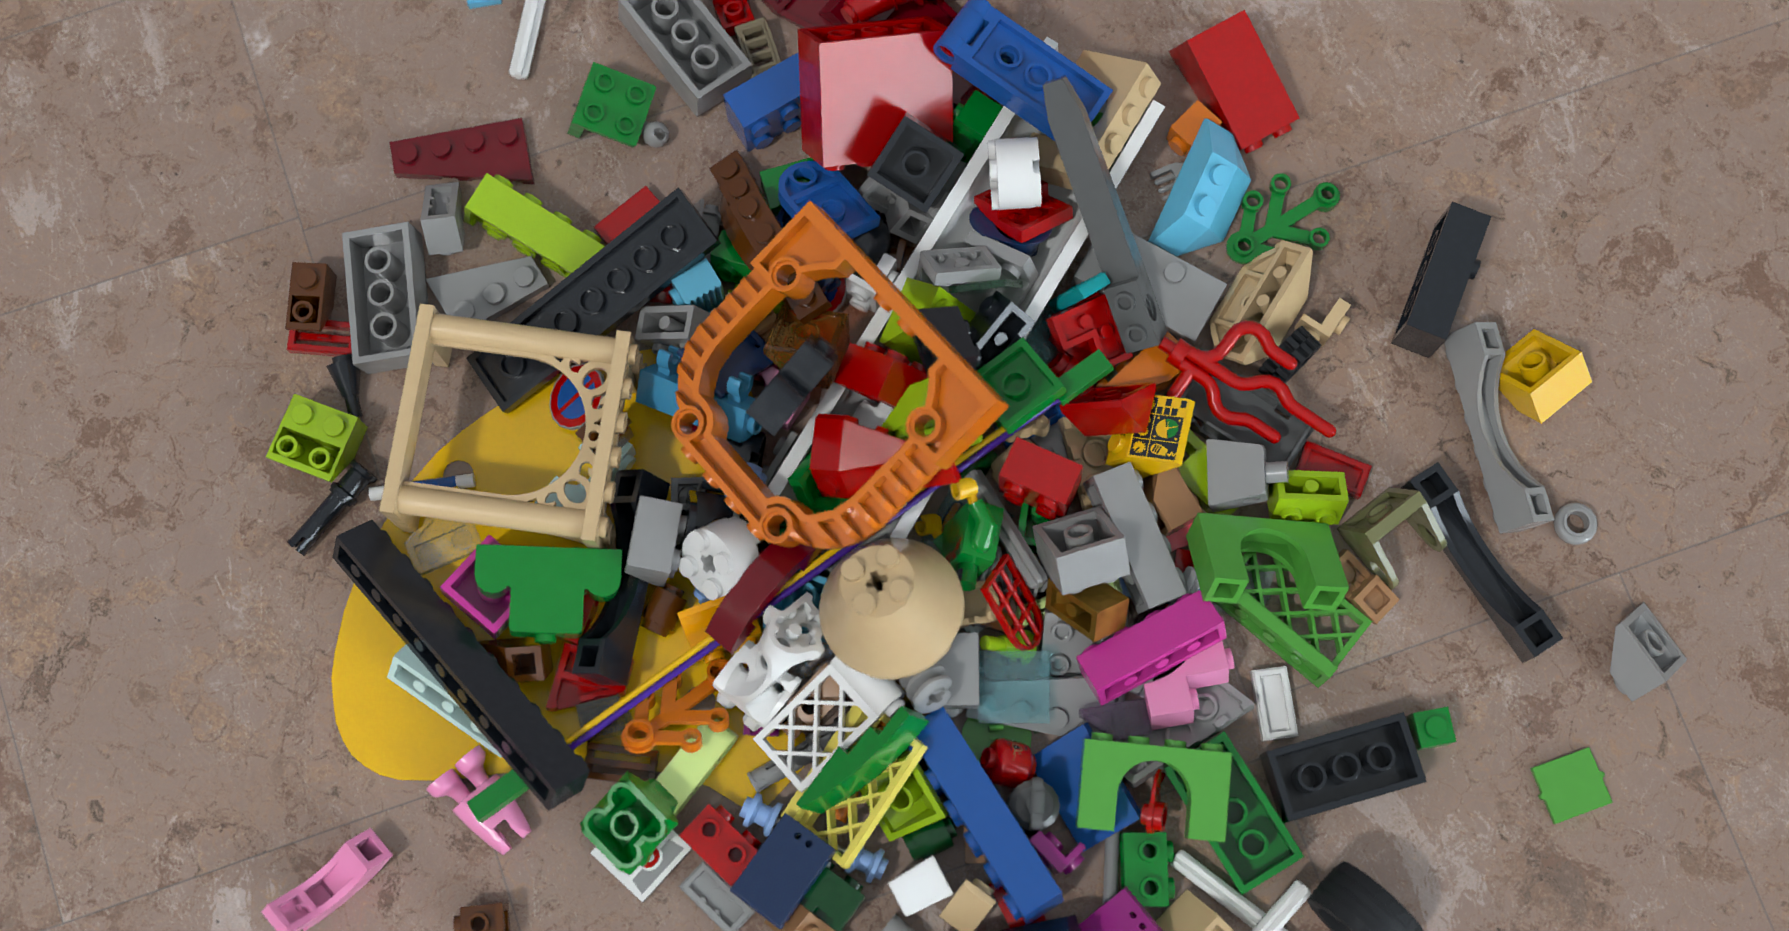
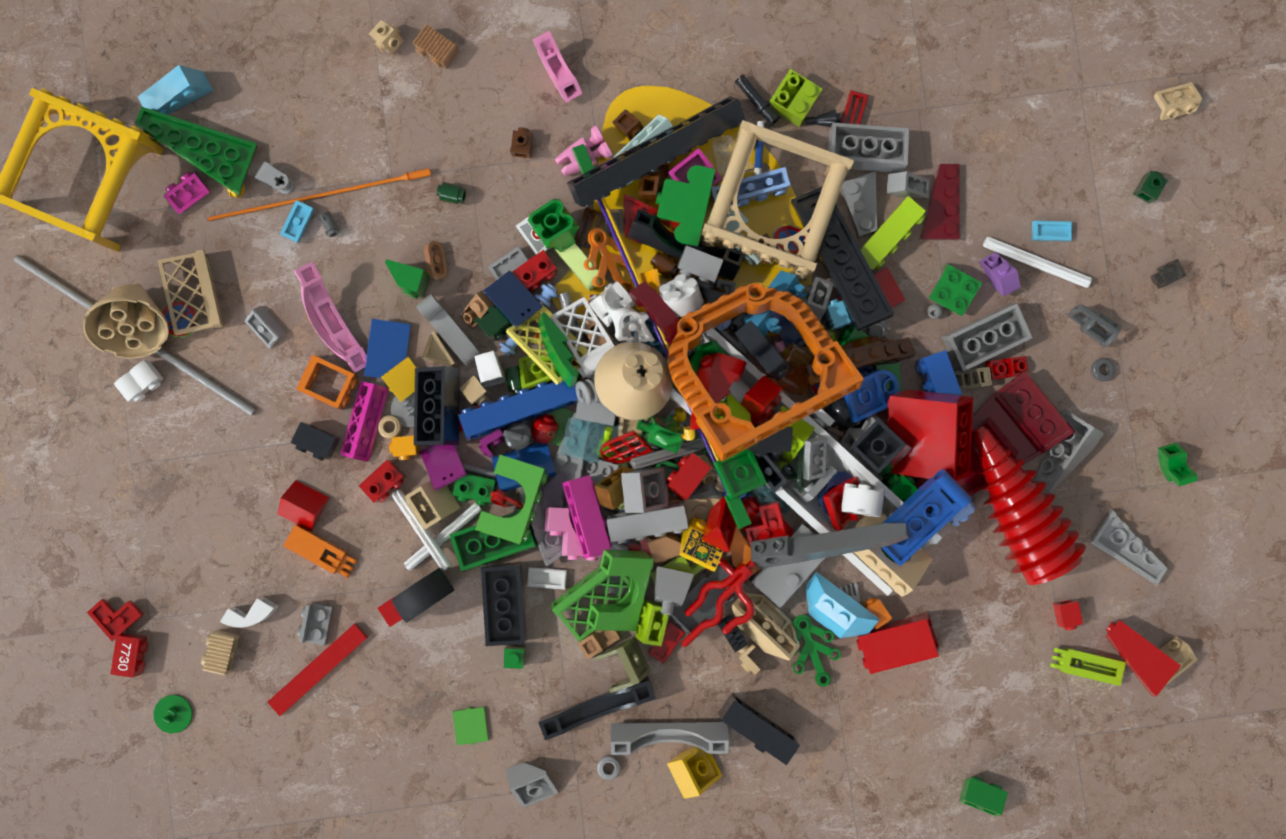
camera: 100 degrees right, 10 degrees up
(310, 296) = (876, 106): reddish brown slope -> none
(415, 730) = (628, 124): none -> reddish brown bracket
(492, 470) = (759, 187): none -> light blue brick
(570, 39) = (1000, 273): none -> medium lavender slope
(1079, 292) = (790, 523): teal tile -> none

